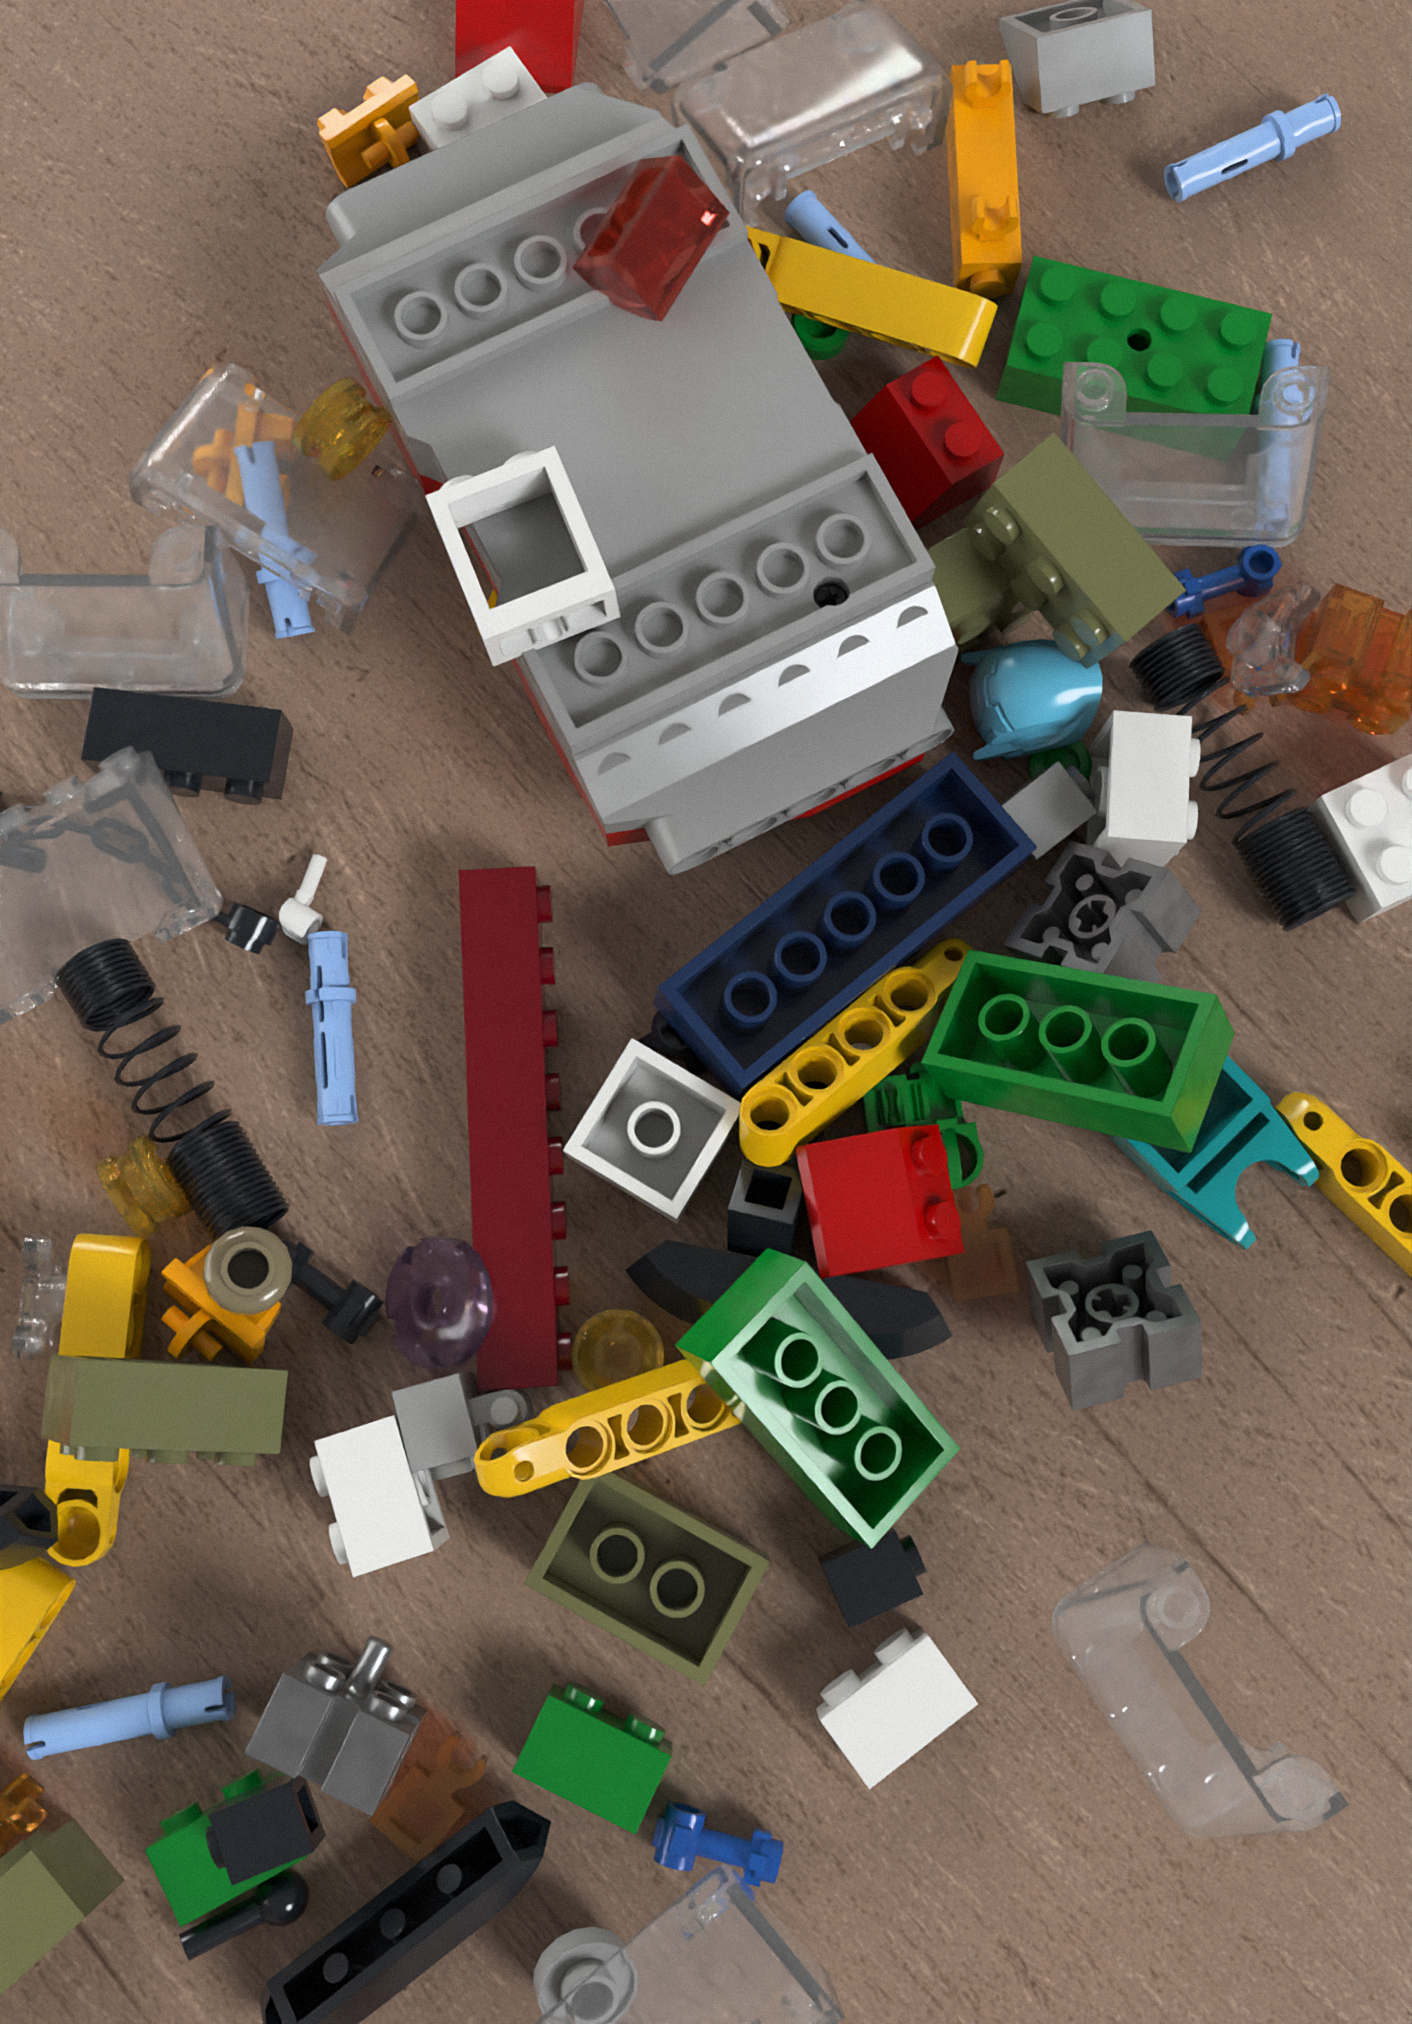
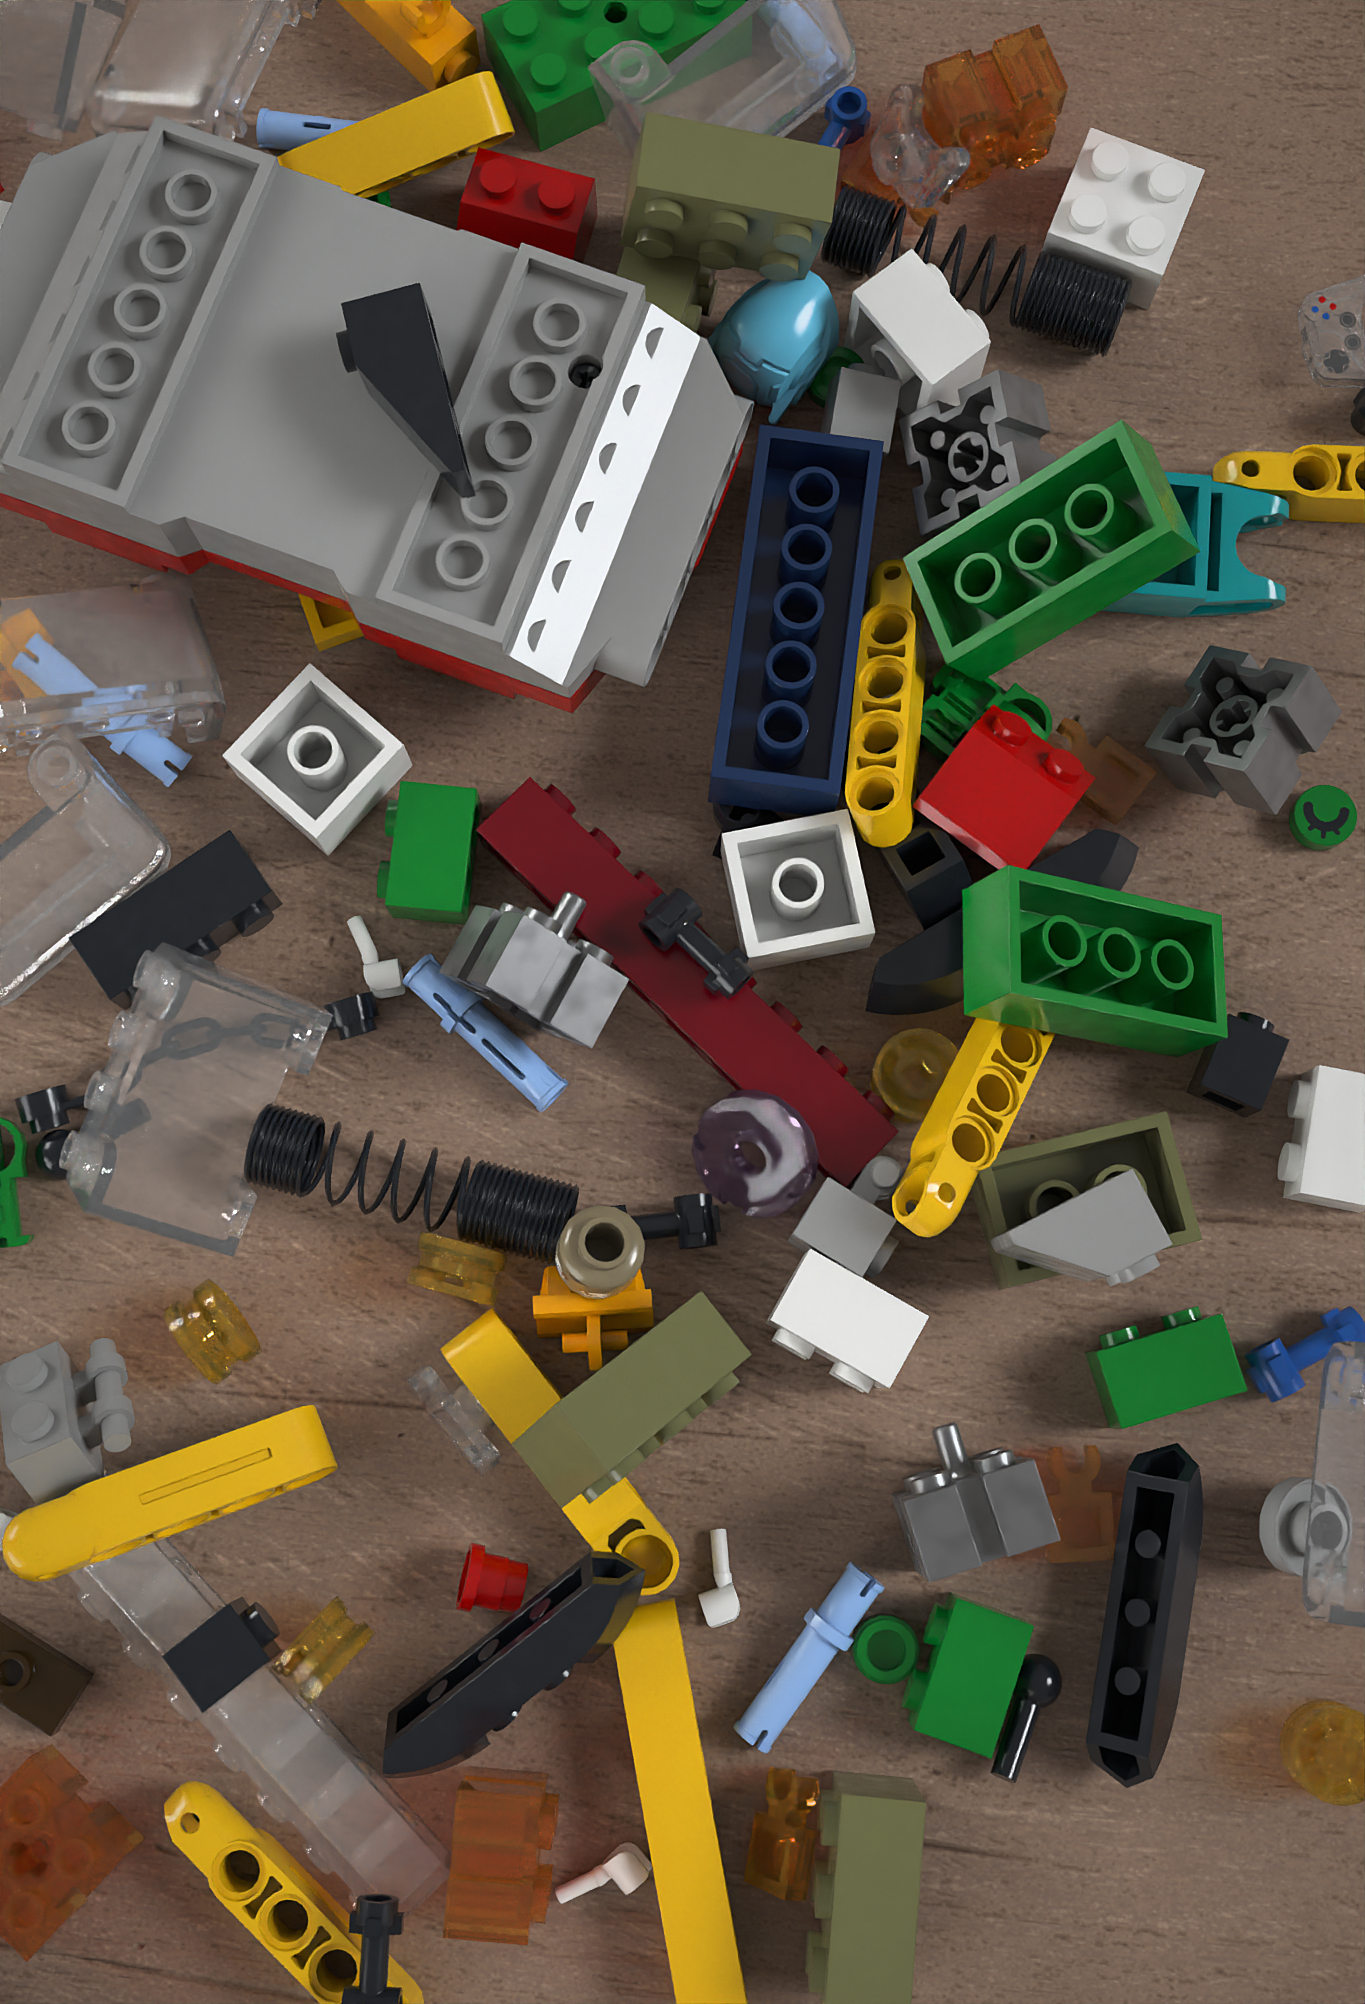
camera: 40 degrees left, 0 degrees up
(108, 1616) = (721, 1603): none -> white hand
(193, 1765) = (885, 1648): none -> green tile
(264, 1828) = (989, 1627): black brick -> none
(340, 428) = (90, 572): clear yellow wheel -> none
(394, 715) = (318, 759): none -> white brick
(399, 1017) = (536, 970): none -> flat silver brick
(416, 858) = (430, 852): none -> green brick
(533, 1071) = (672, 920): none -> black bar
(546, 613) = (397, 560): white window -> none
(603, 1603) = (1093, 1235): none -> light grey slope
(652, 237) = (212, 218): clear red brick -> none
(690, 466) = (402, 367): none -> black slope
(1122, 1443) = (1322, 817): none -> green tile

